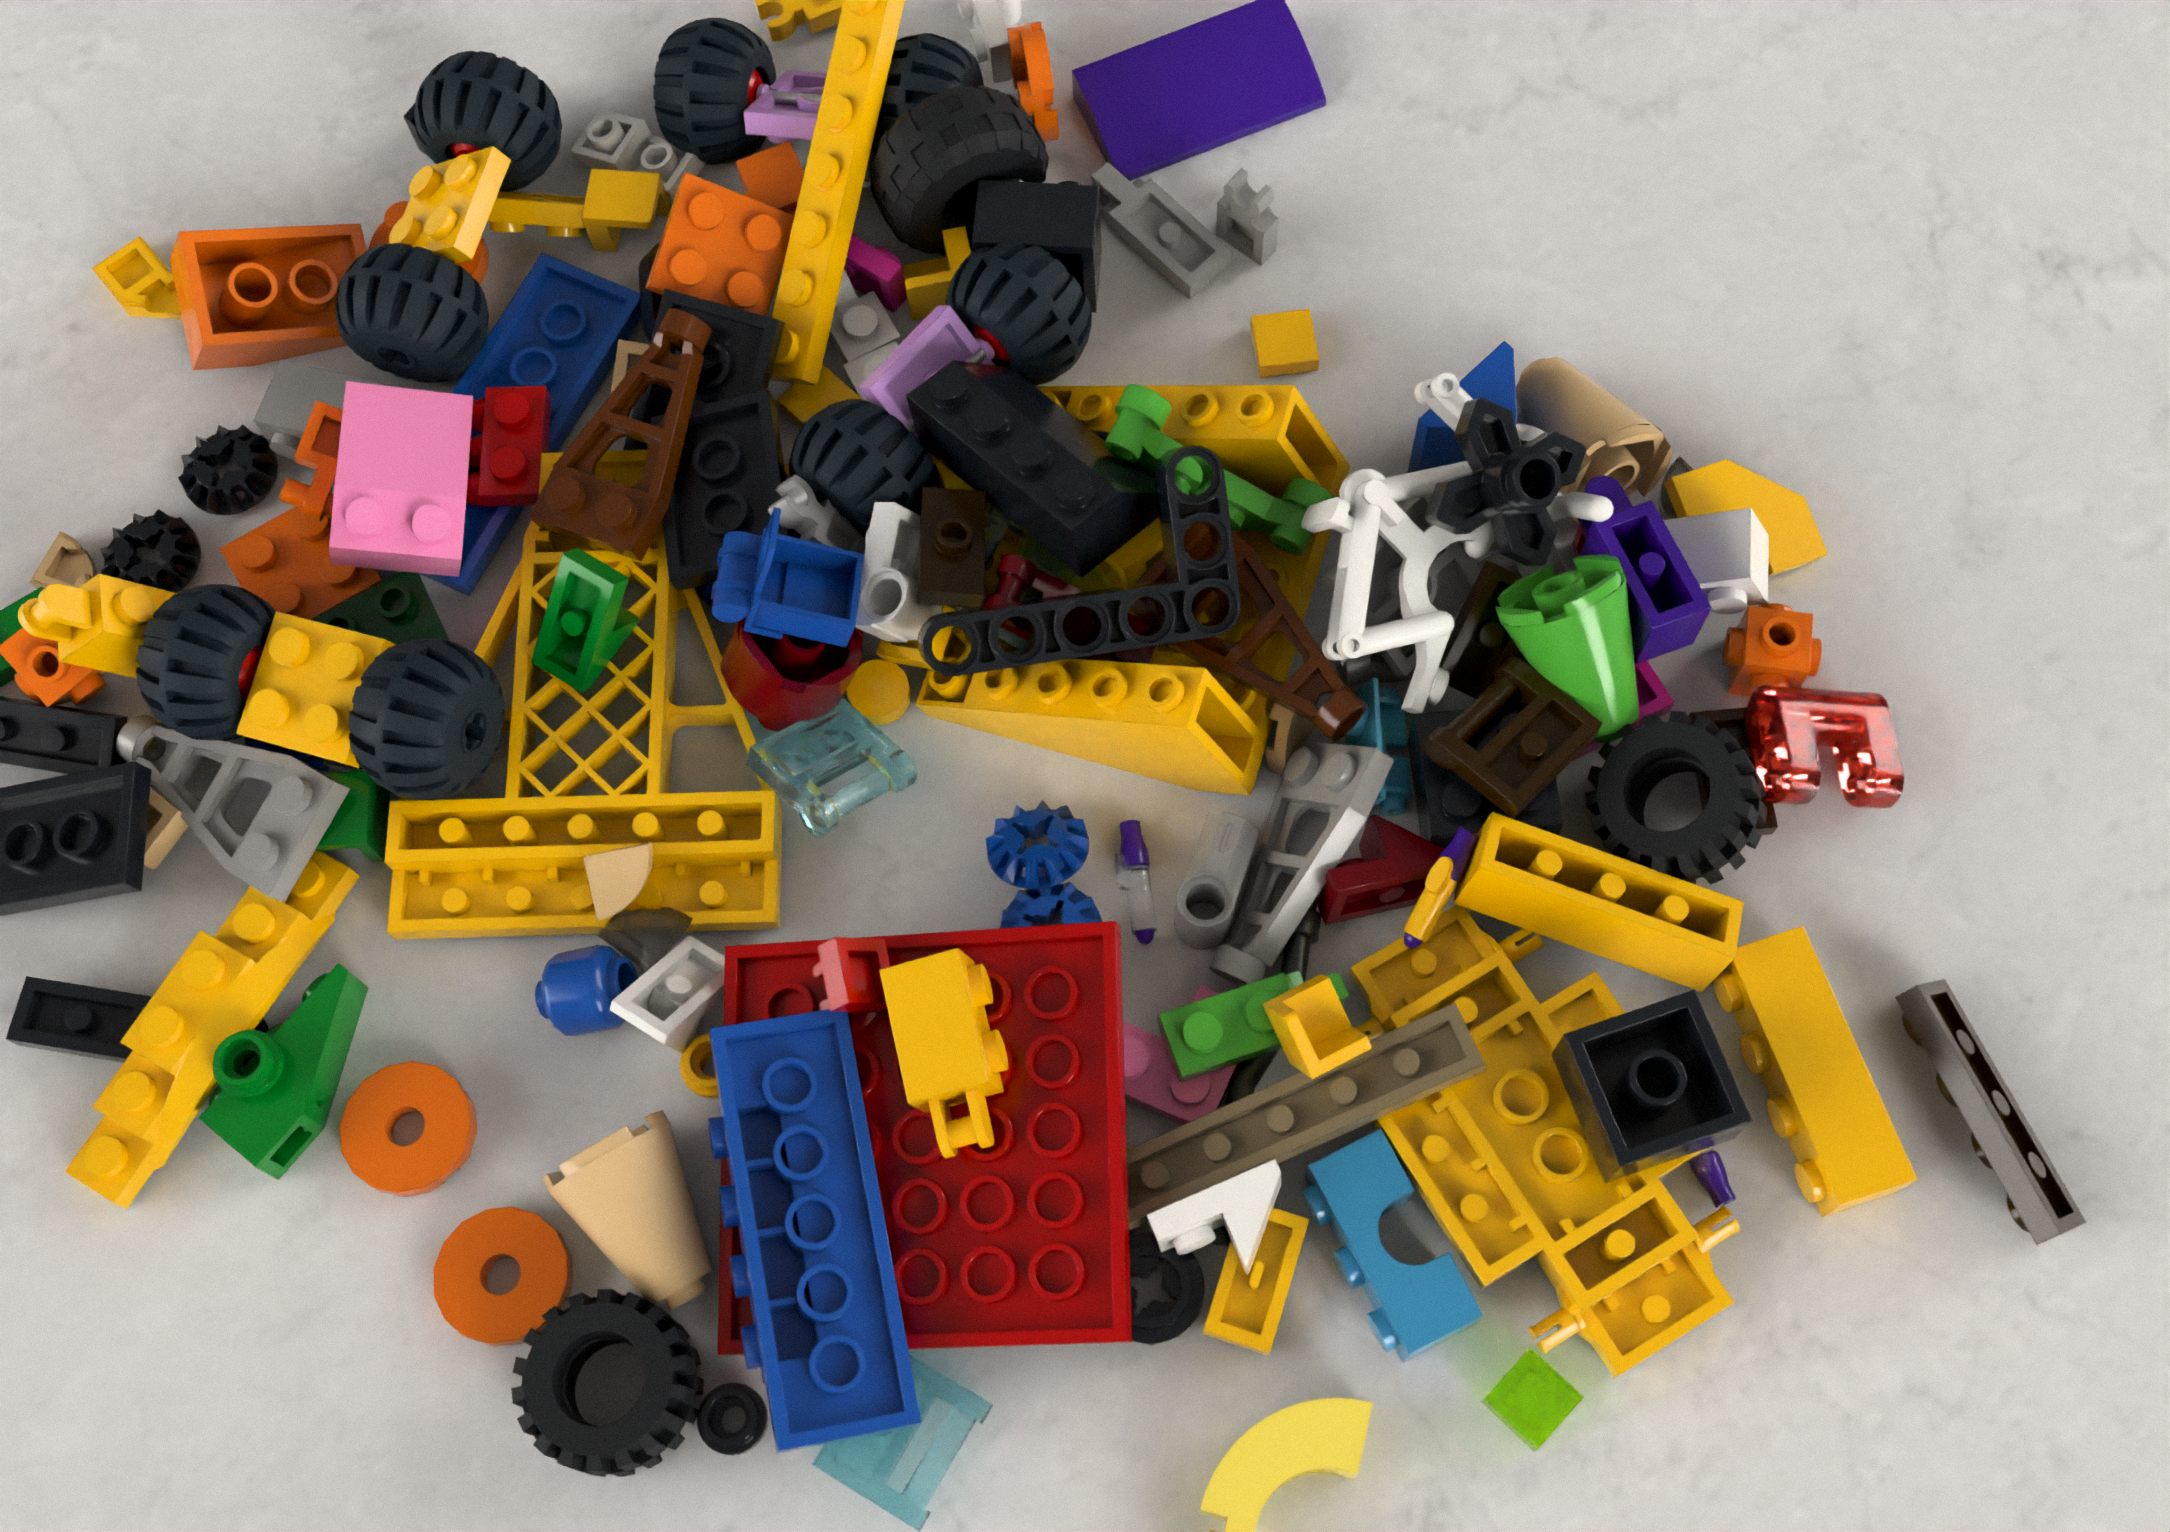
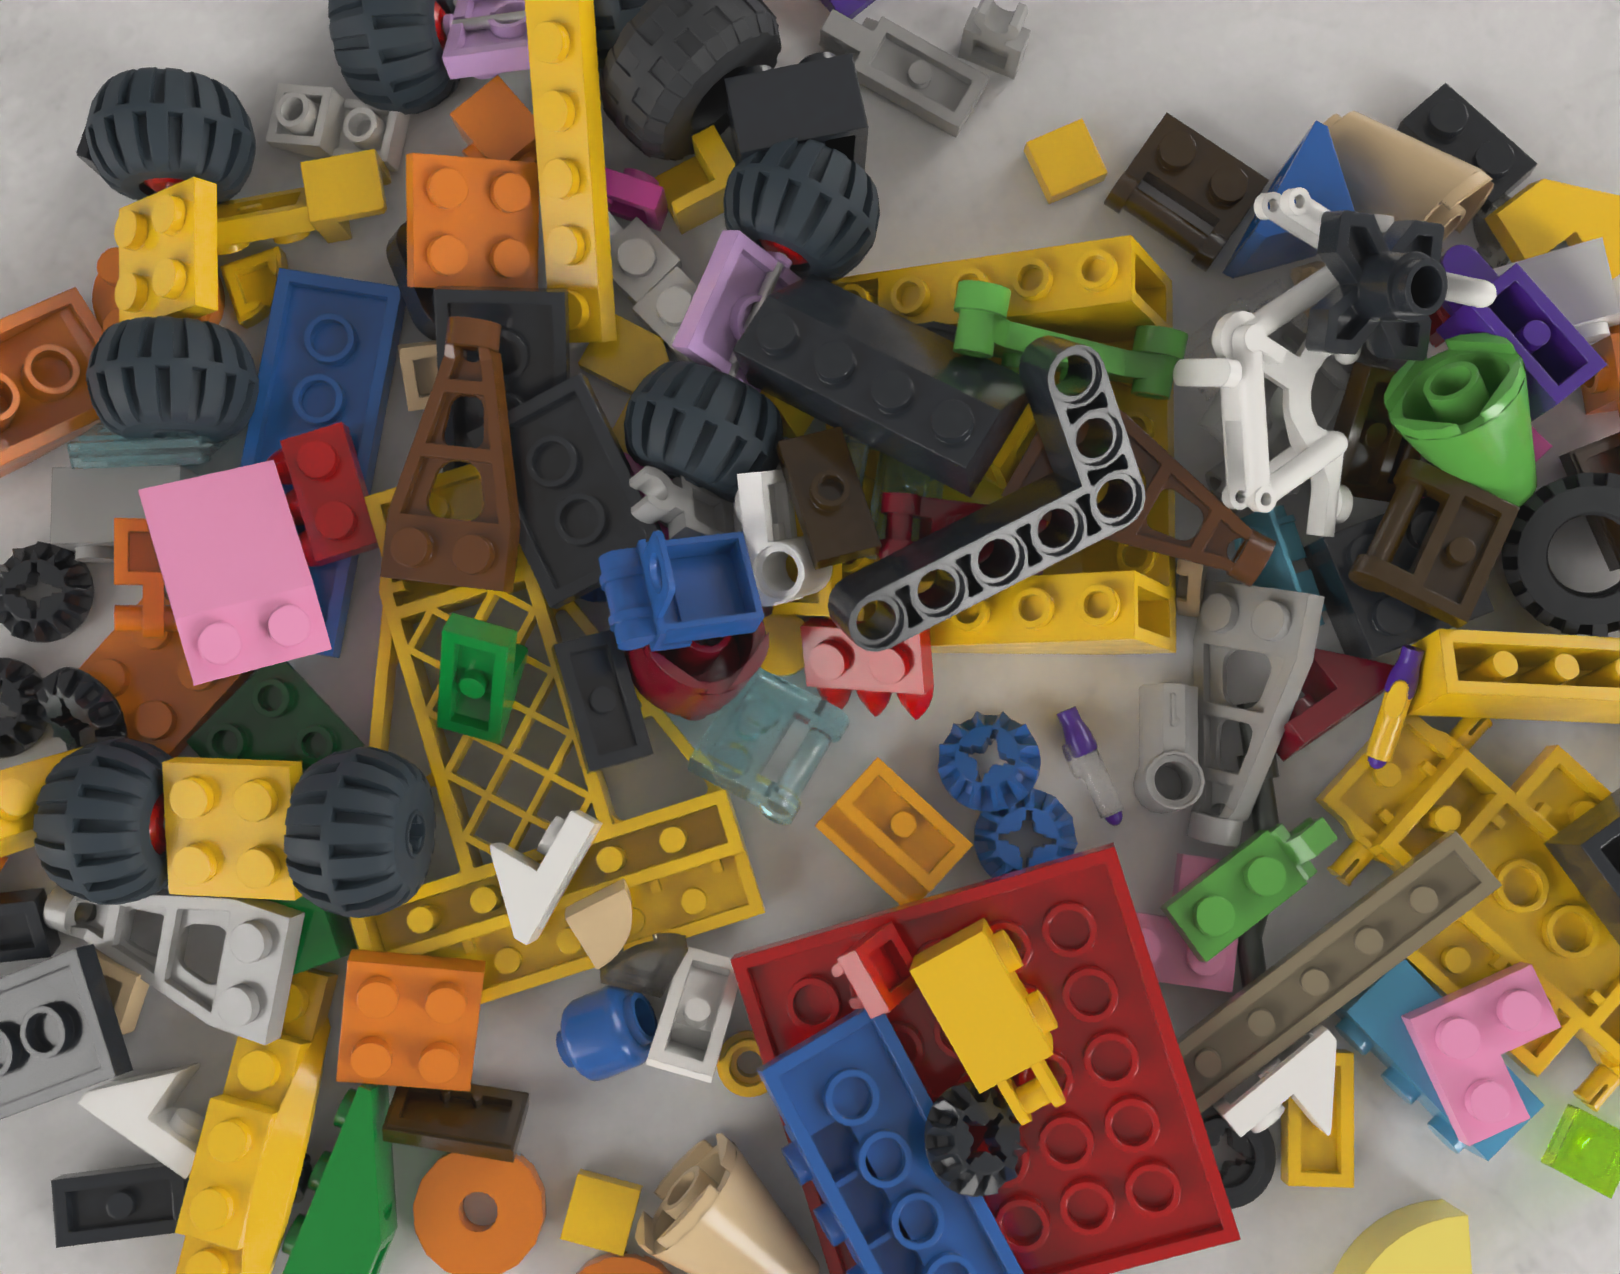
camera: 20 degrees left, 15 degrees up
(142, 935) = (145, 1114): none -> white slope
(223, 555) = (76, 699): none -> black gear
(231, 1056) = (297, 1233): green plate -> none
(363, 363) = (105, 449): none -> clear light blue plate
(408, 920) = (410, 1020): none -> orange plate
(418, 1029) = (470, 1123): none -> dark brown plate
(511, 264) = (253, 283): none -> yellow tile
(518, 1164) = (601, 1212): none -> yellow tile
(568, 822) = (535, 888): none -> white slope
(688, 679) = (601, 701): none -> black plate
(890, 1191) = (949, 1140): none -> black gear
(923, 881) = (893, 834): none -> light orange plate
(952, 719) = (839, 666): none -> plate
(1314, 1027) = (1328, 891): yellow panel -> none
(1389, 372) = (1194, 176): none -> dark brown plate
(1415, 1220) = (1463, 1045): none -> bright pink plate
(1666, 404) = (1462, 131): none -> black plate

